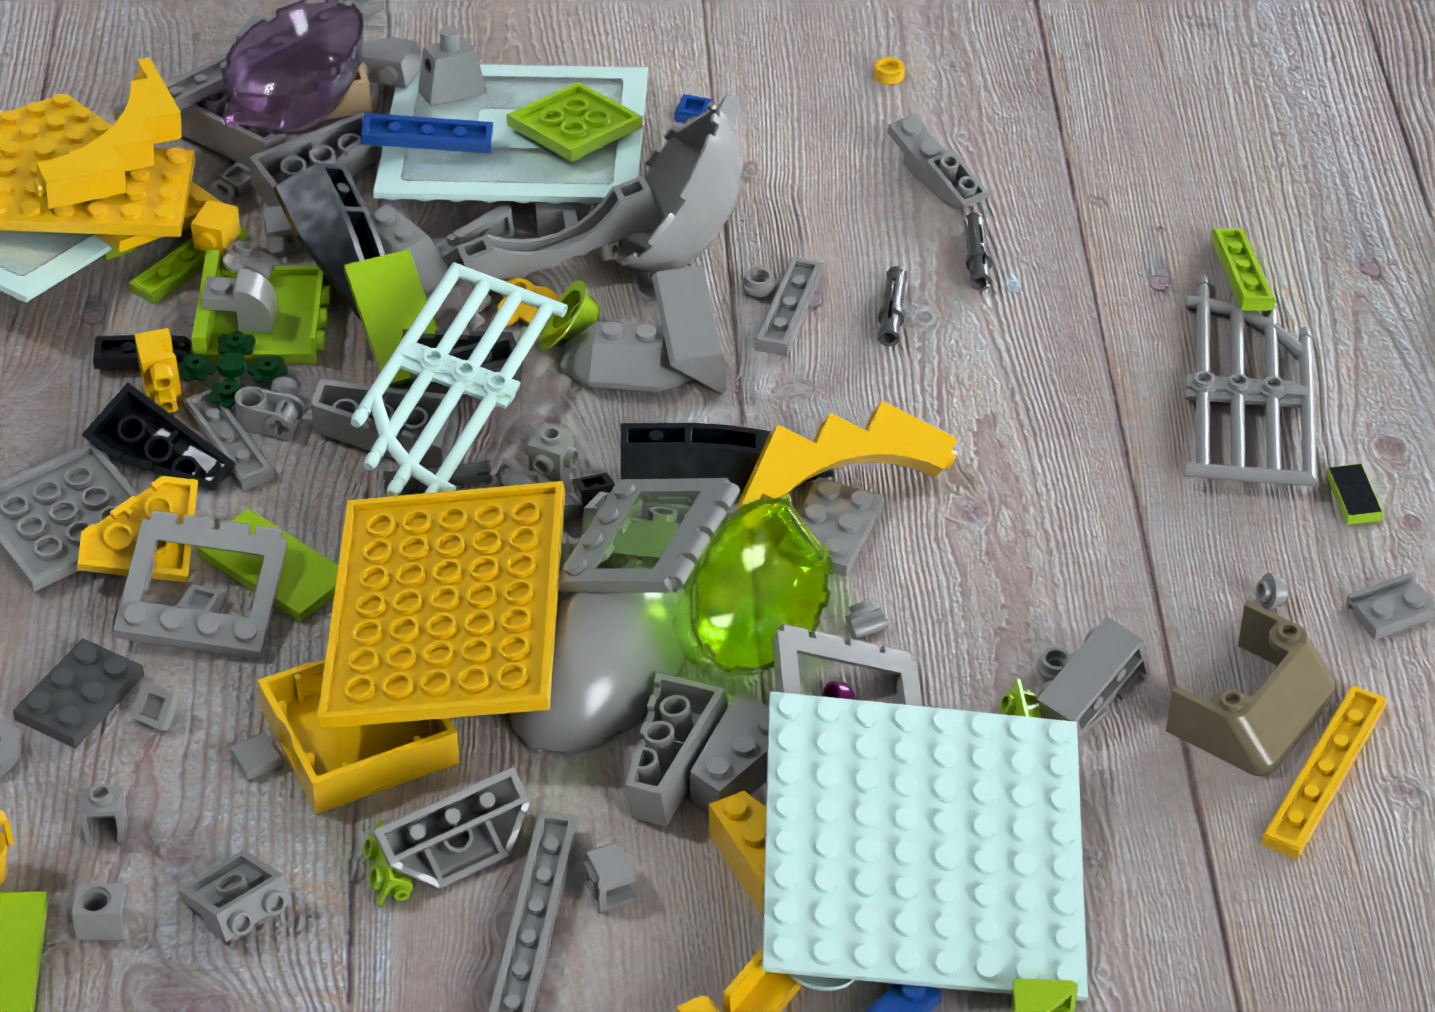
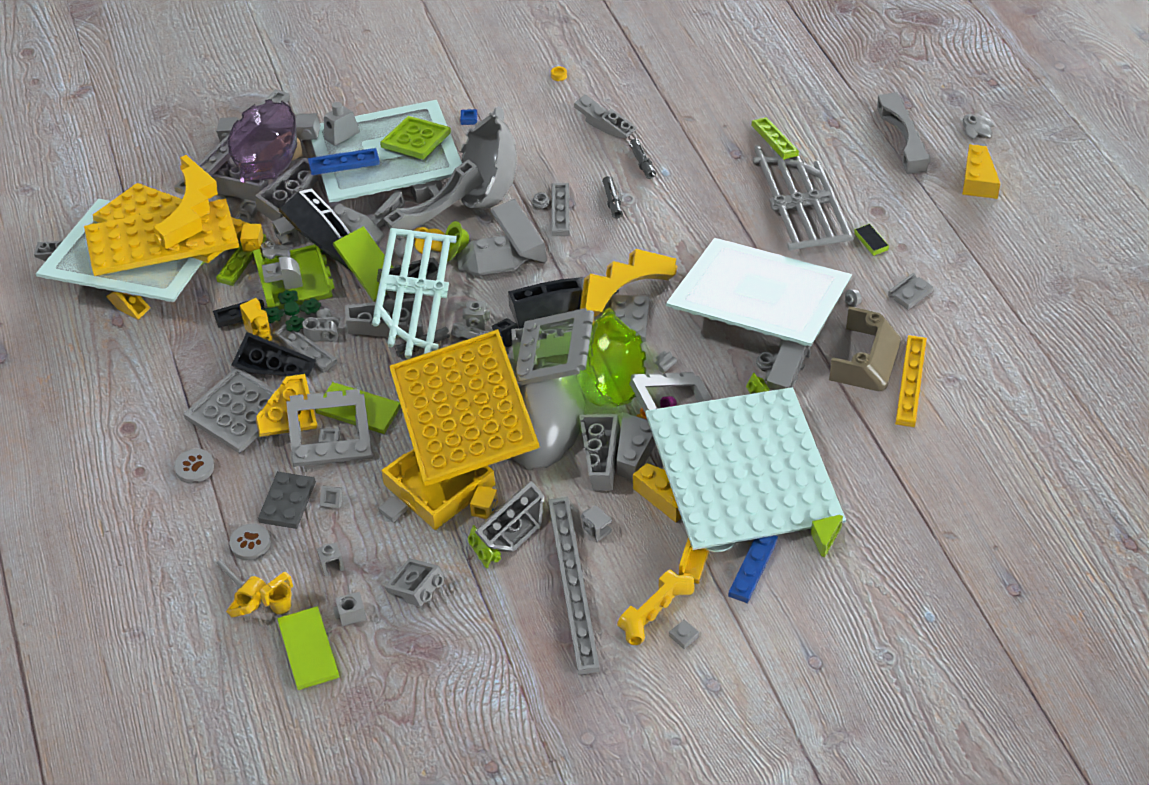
camera: 15 degrees left, 5 degrees up
(420, 783) = (484, 502): none -> yellow brick
(1091, 535) = (760, 291): none -> baseplate

